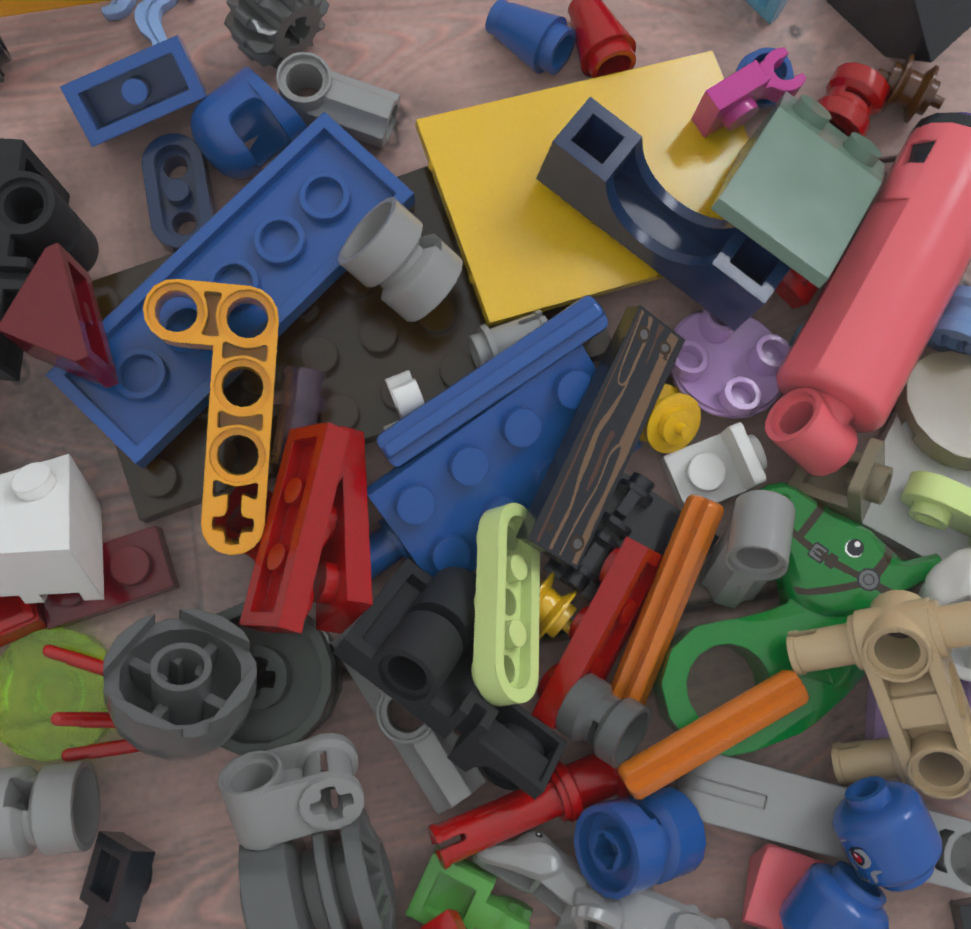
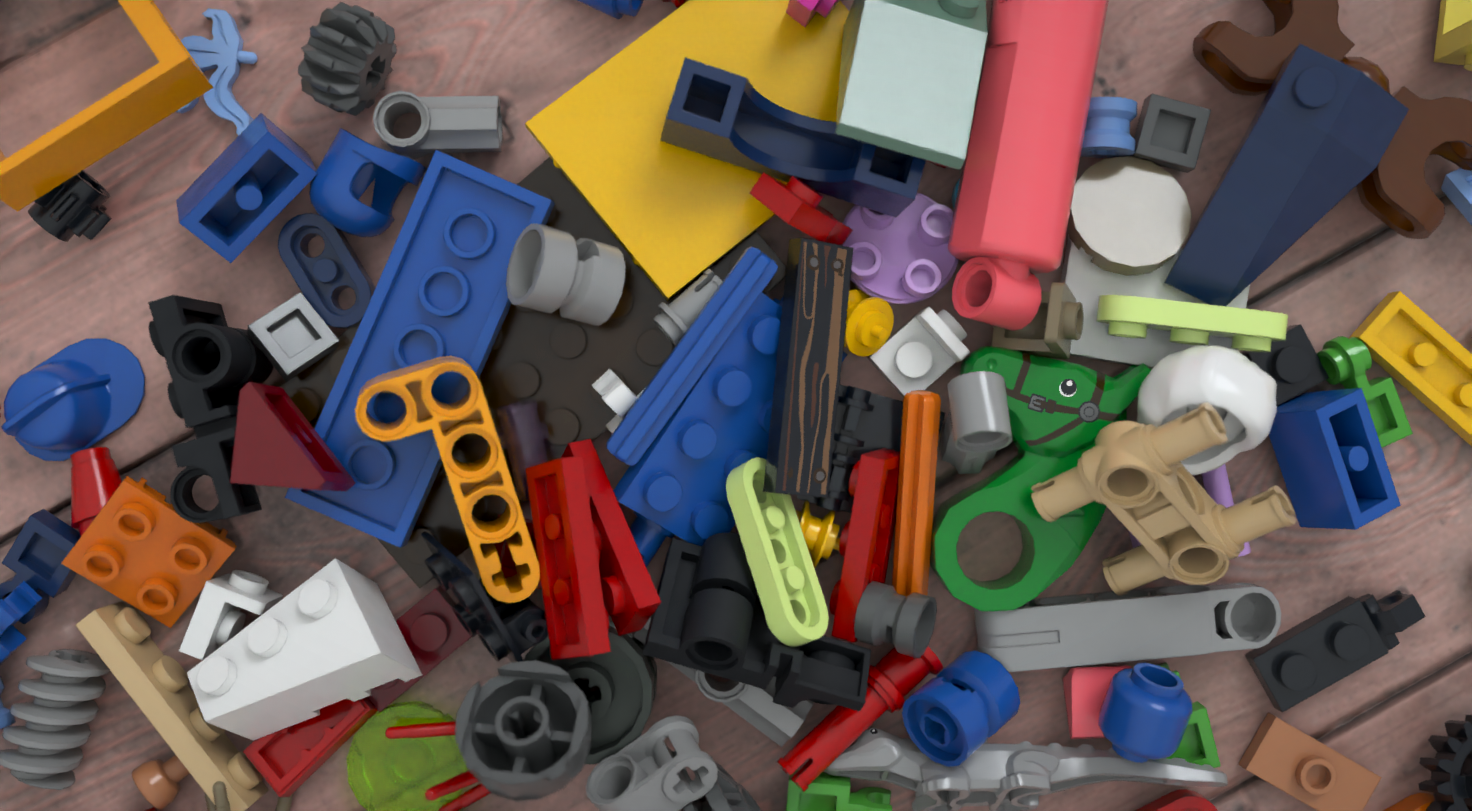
camera: 10 degrees left, 10 degrees up
(120, 236) = (293, 336): none -> tile
(202, 575) = (501, 626): none -> black hinge
(646, 280) = (800, 208): none -> red plate
(713, 734) = (994, 598): orange axle -> none
(887, 834) = (1168, 630): blue head -> none

